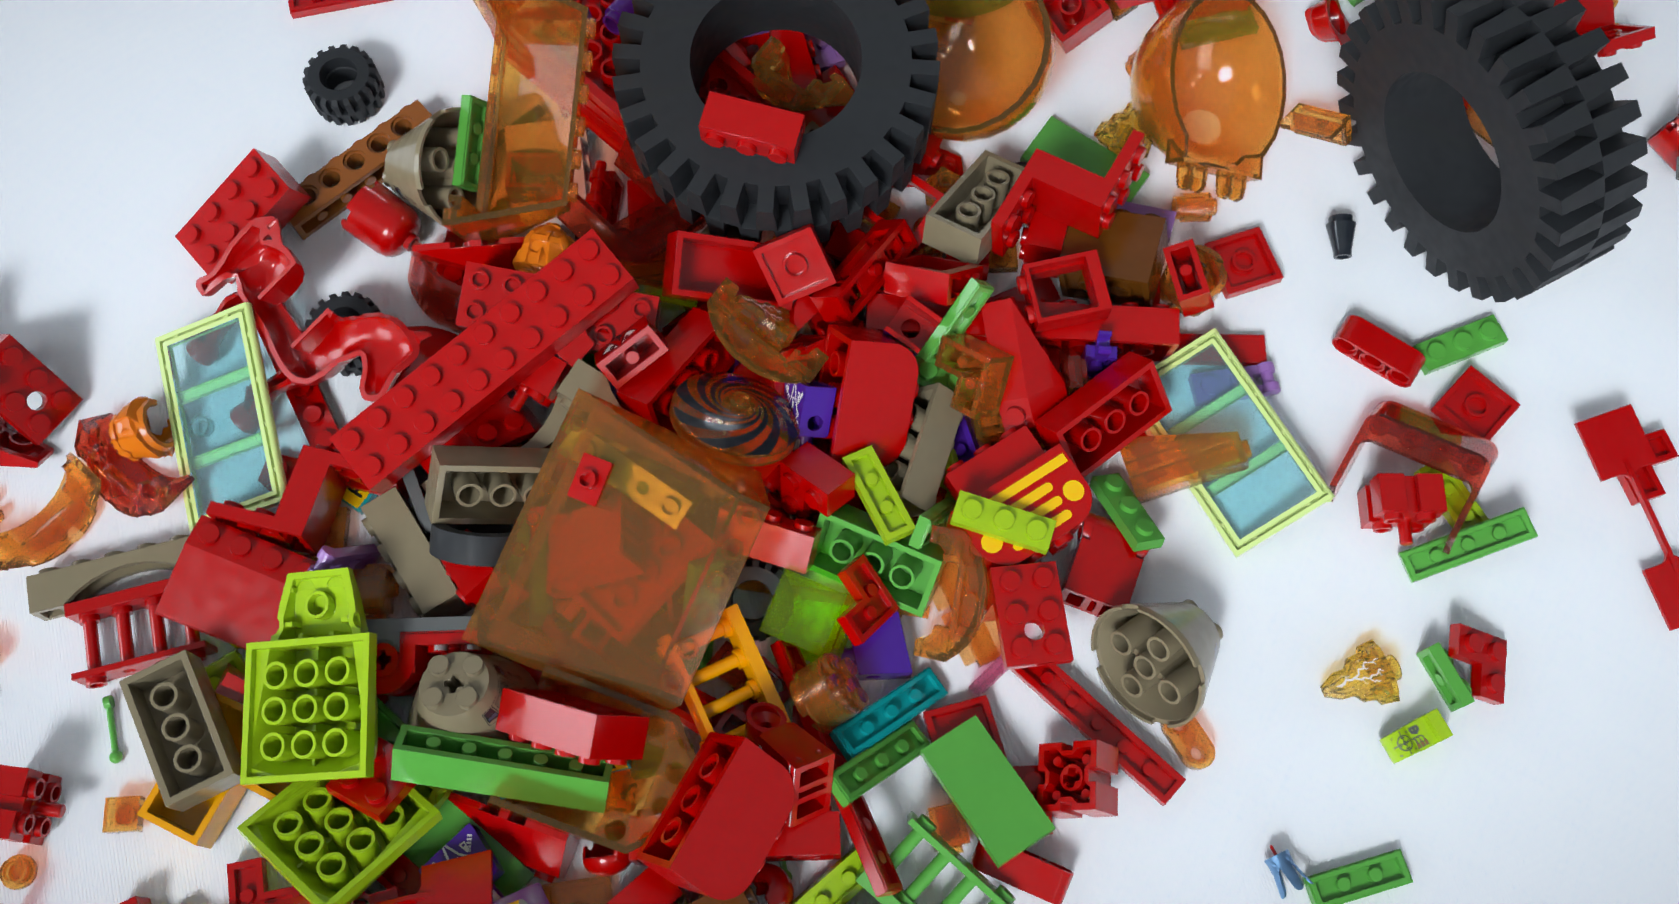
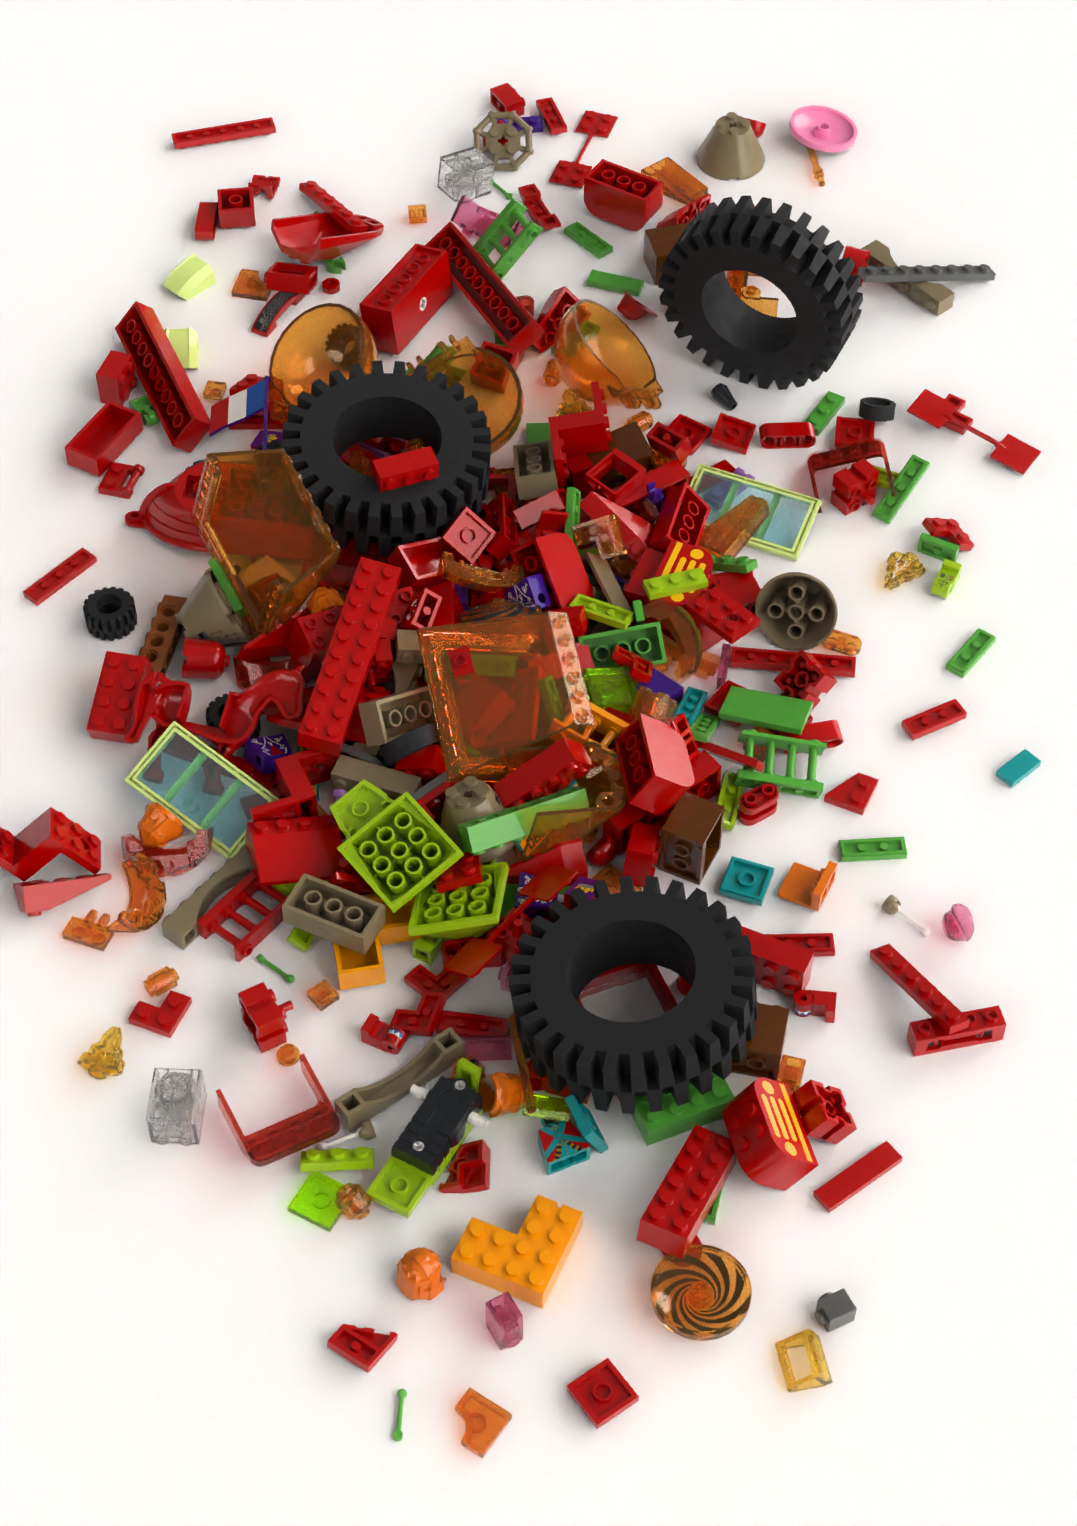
camera: 35 degrees left, 20 degrees down
(336, 408) = (264, 750): none -> dark purple torso
(1284, 862) = (931, 666): flat silver piece -> none
(1307, 301) = (732, 433): none -> red plate
(1319, 124) = (672, 350): clear orange panel -> none
(1521, 392) = (877, 409): none -> black tyre

